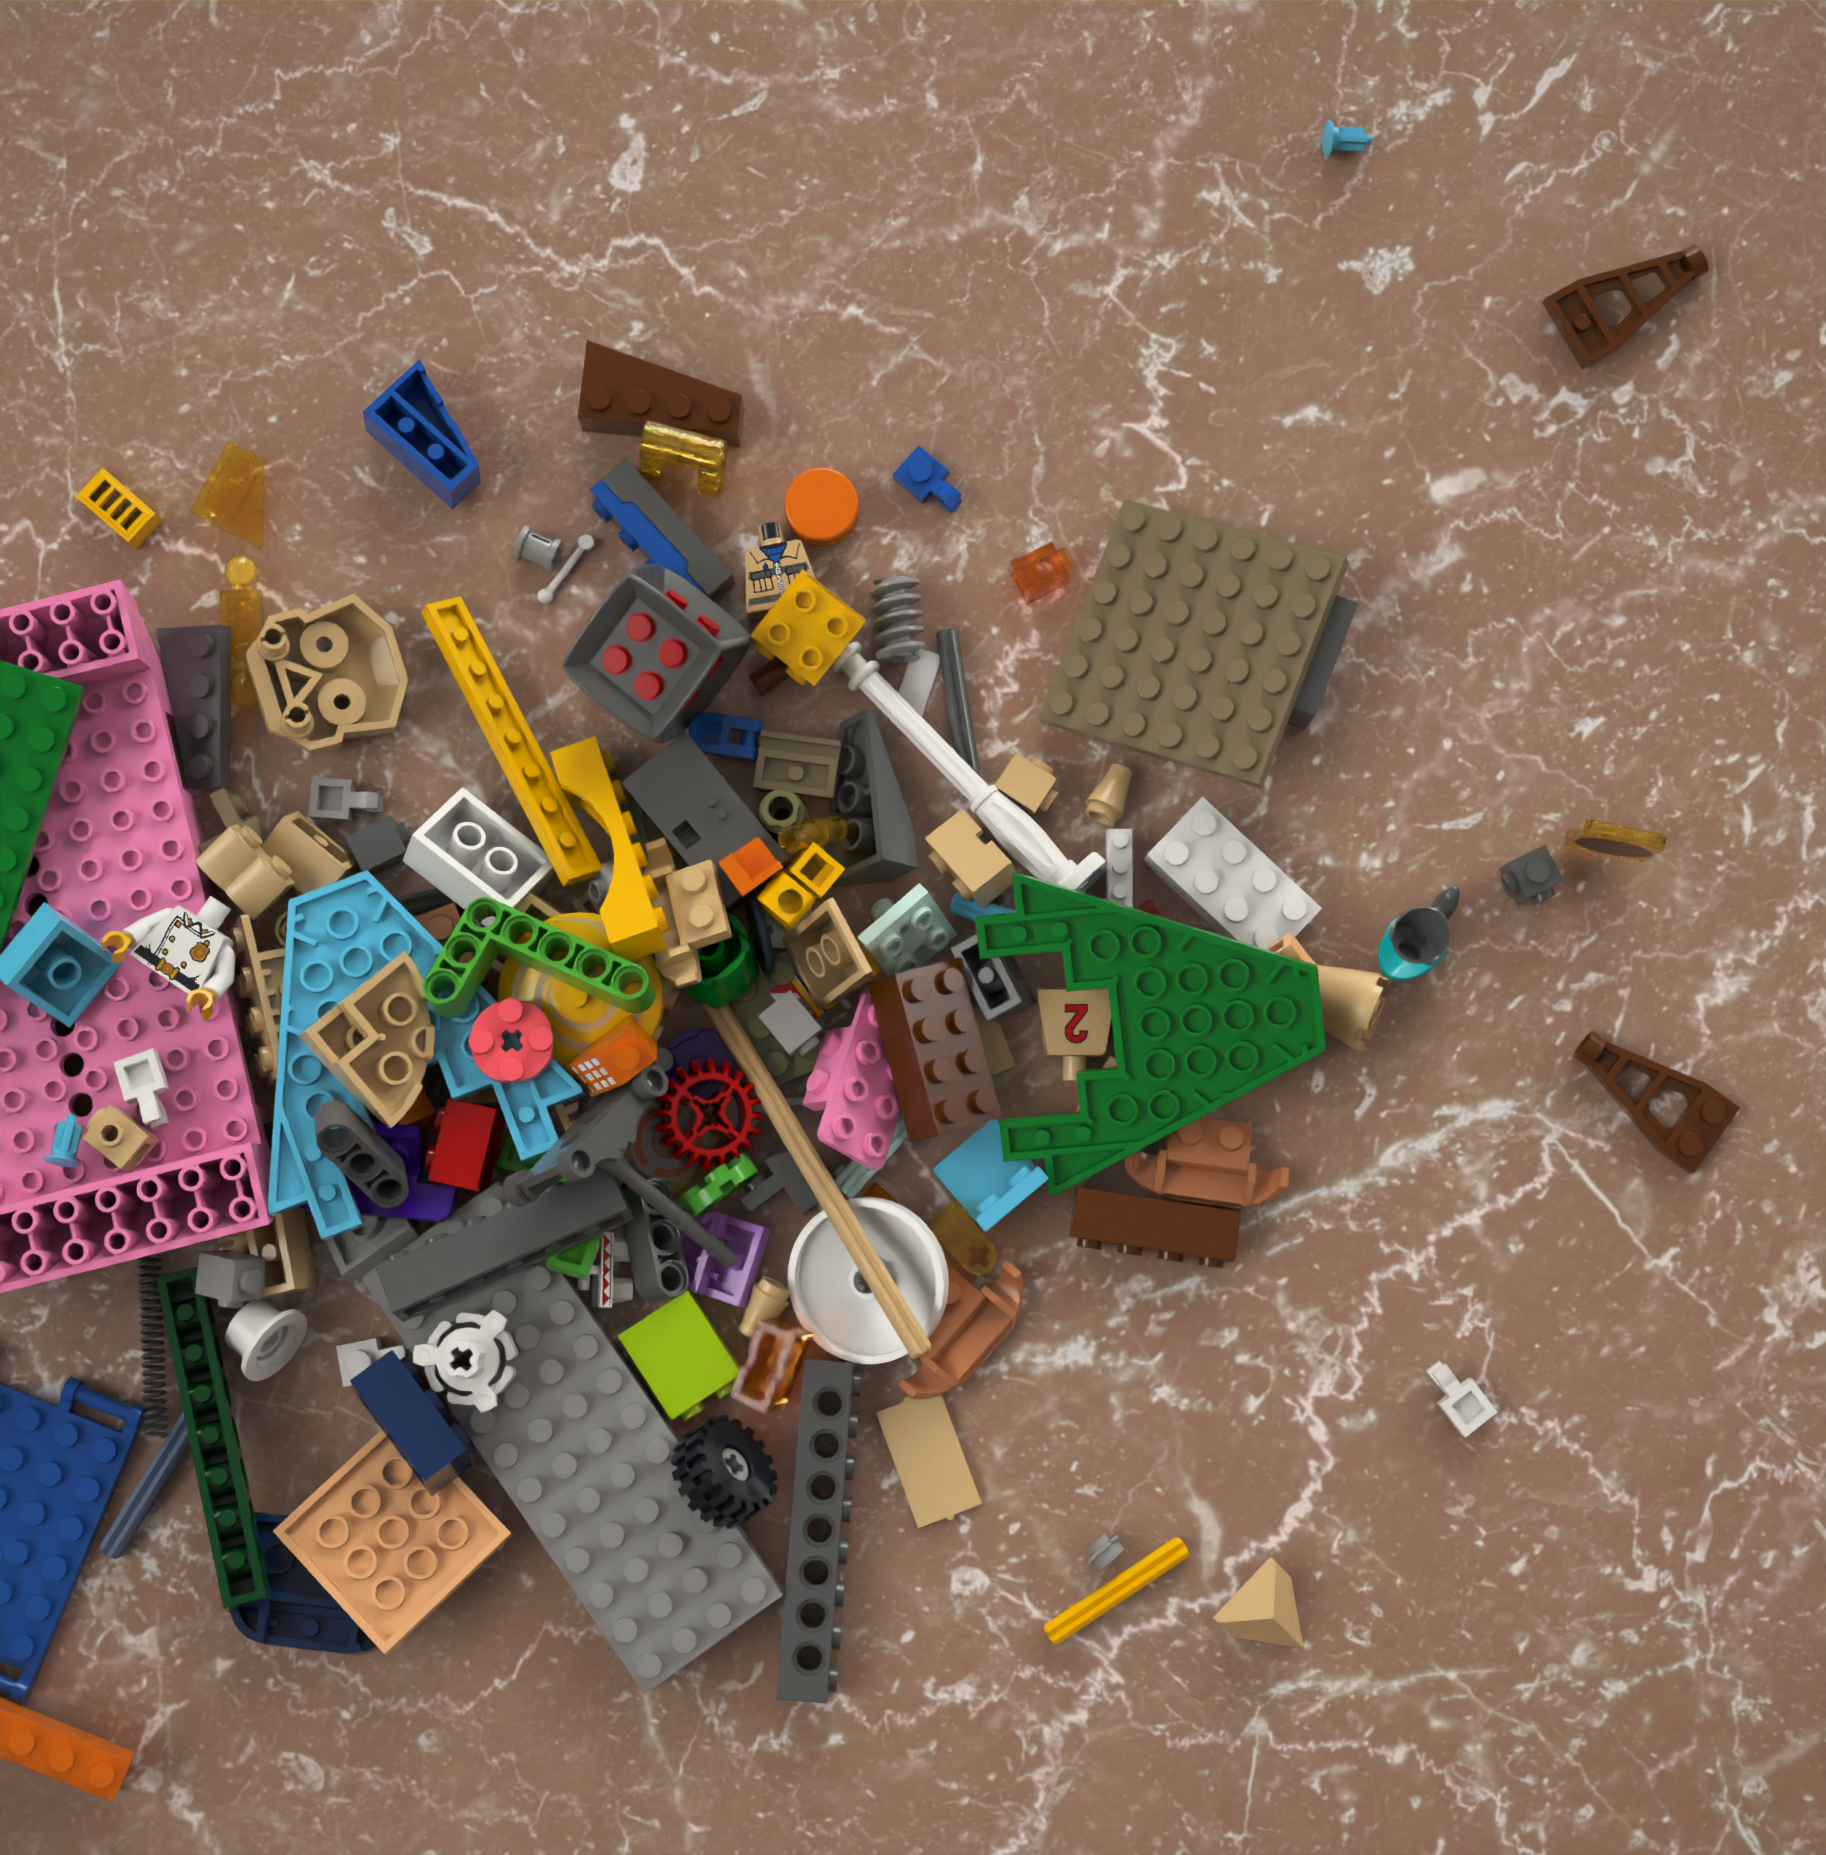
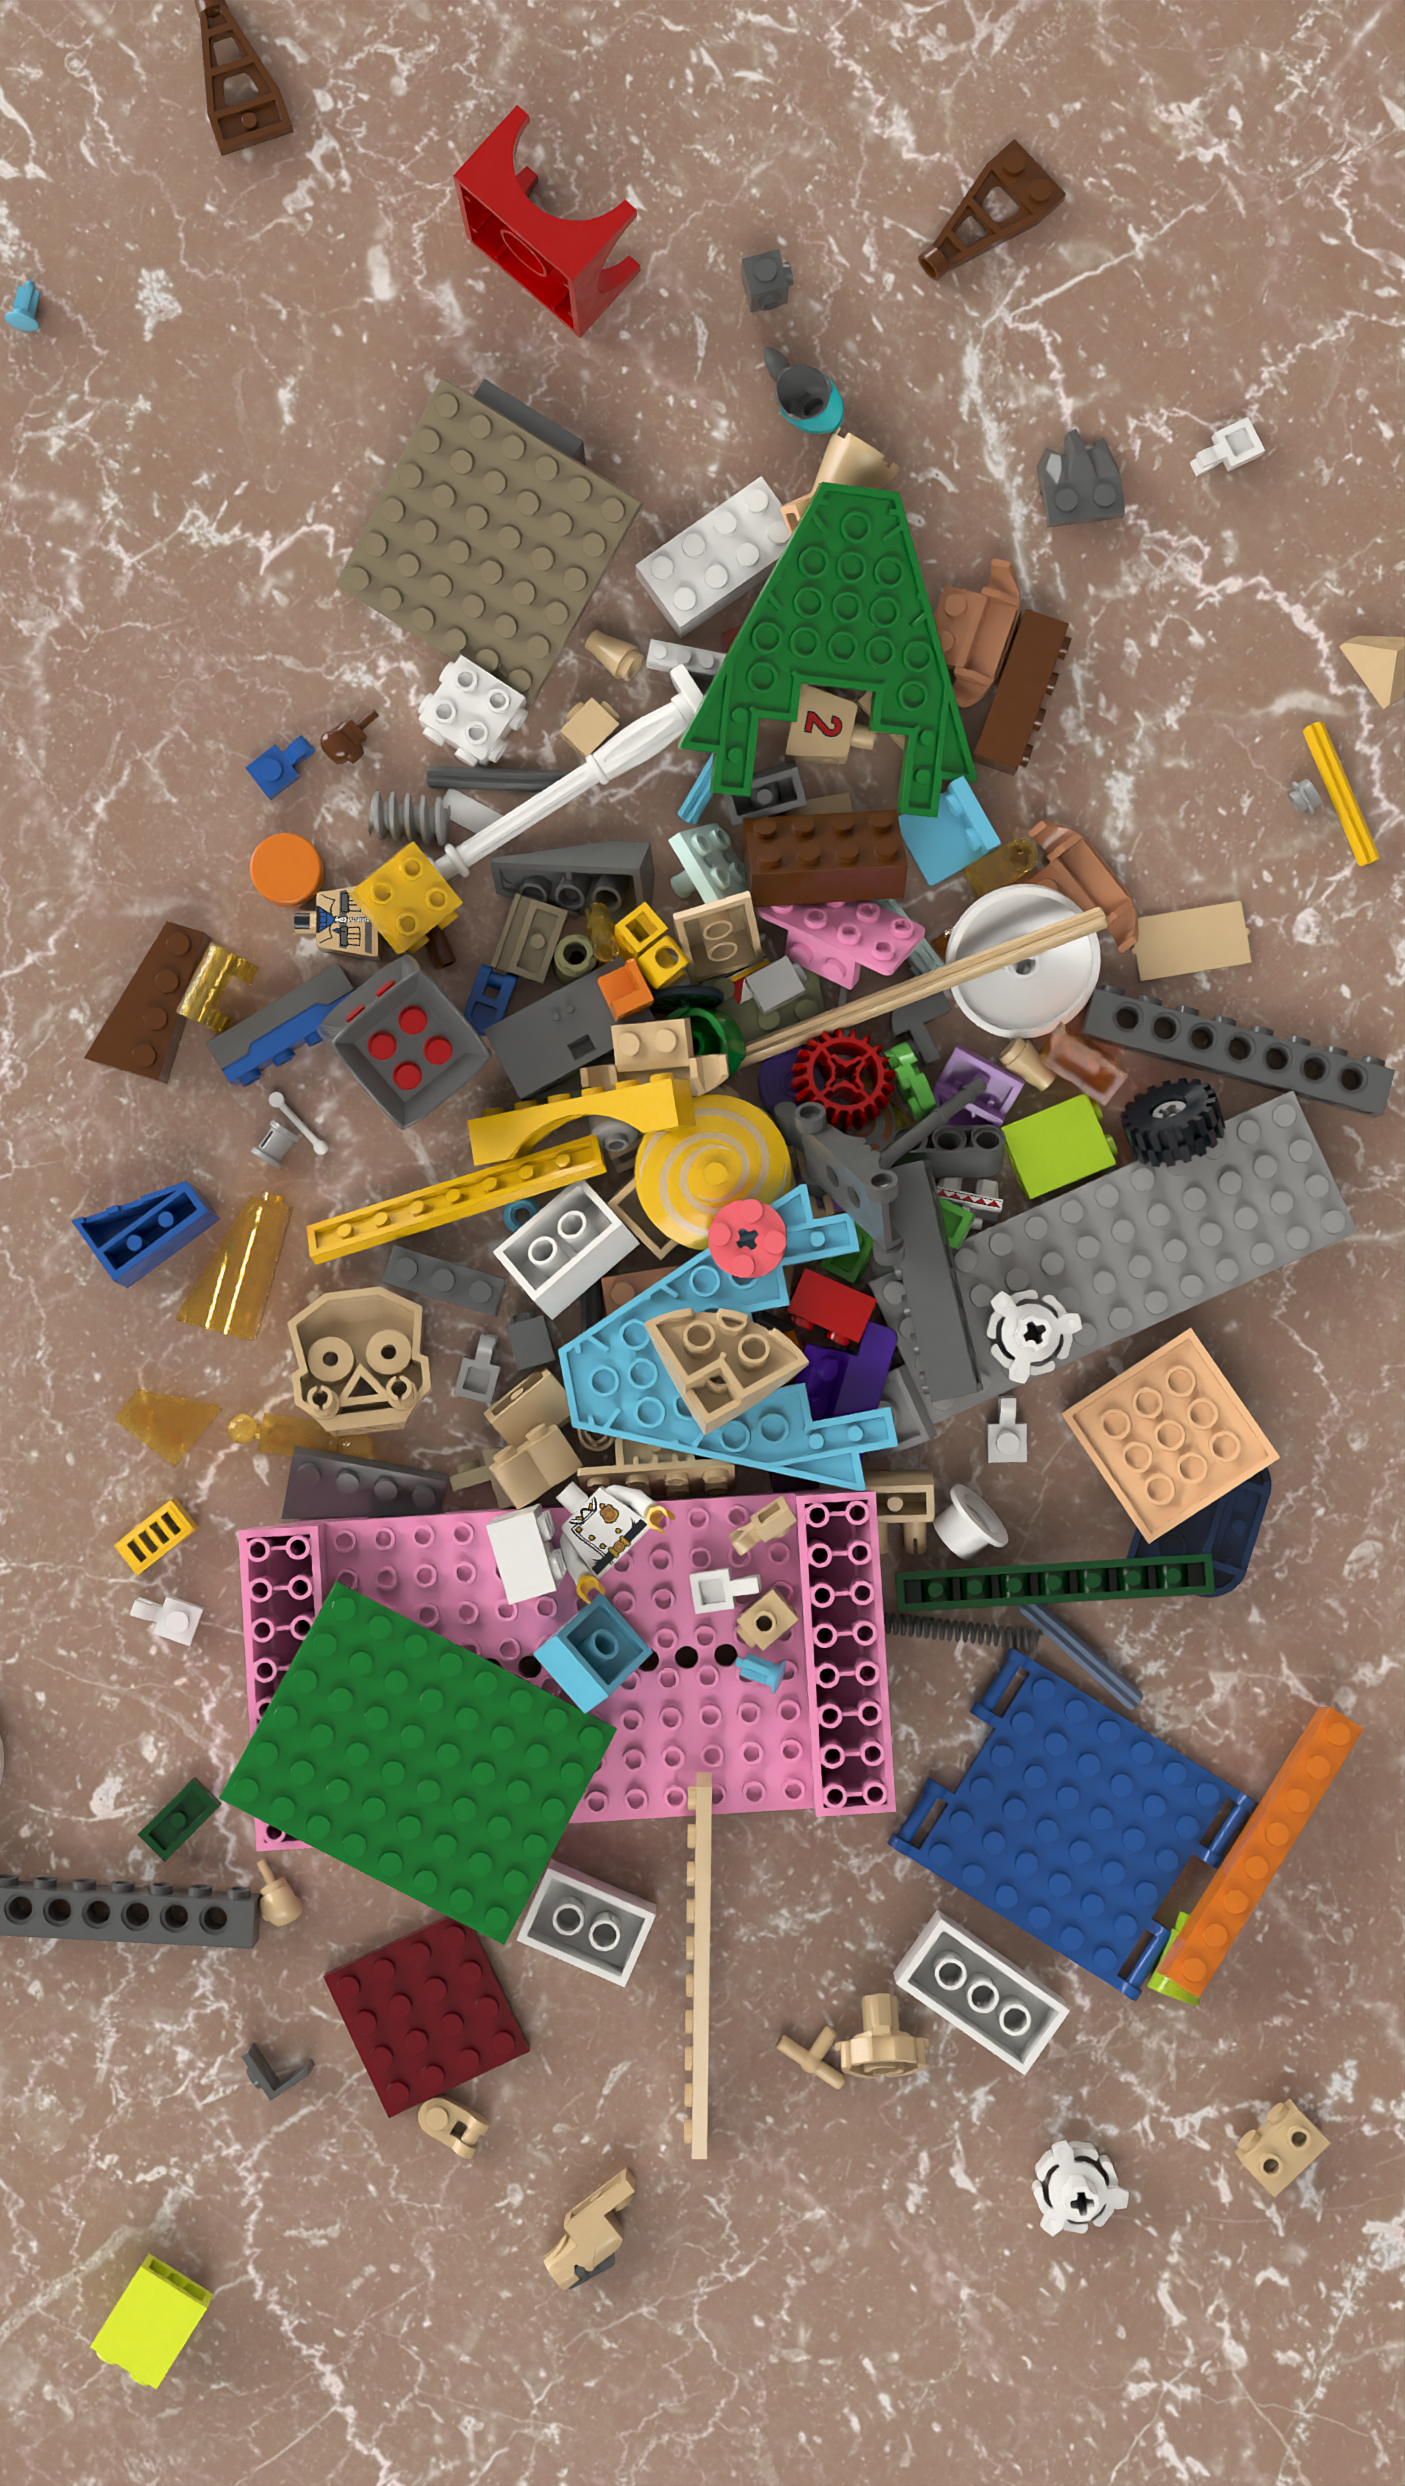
camera: 75 degrees left, 5 degrees up
(37, 542) = (174, 1619): none -> white plate
(141, 872) = (526, 1553): none -> white brick
(219, 1119) = (768, 1523): none -> tan plate
(230, 1277) = (911, 1542): light grey brick -> none
(356, 1138) = (826, 1395): dark grey beam -> none
(399, 540) = (240, 1274): none -> clear yellow slope
(414, 1421) = (1075, 1395): dark blue brick -> none
(427, 746) = (445, 1280): none -> dark grey brick
(506, 801) = (511, 1209): none -> medium azure plate
(535, 953) = (671, 1202): bright green beam -> none
(614, 1057) = (780, 1148): orange slope -> none
(966, 539) = (345, 739): none -> reddish brown piece
(977, 866) = (660, 789): tan brick -> none
(1018, 661) = (472, 713): none -> white brick
(1034, 584) = (392, 689): clear orange brick -> none
(1389, 1246) = (1080, 483): none -> dark grey plate
(1496, 657) = (545, 254): none -> red piece
(1615, 840) = (749, 194): clear yellow tile -> none

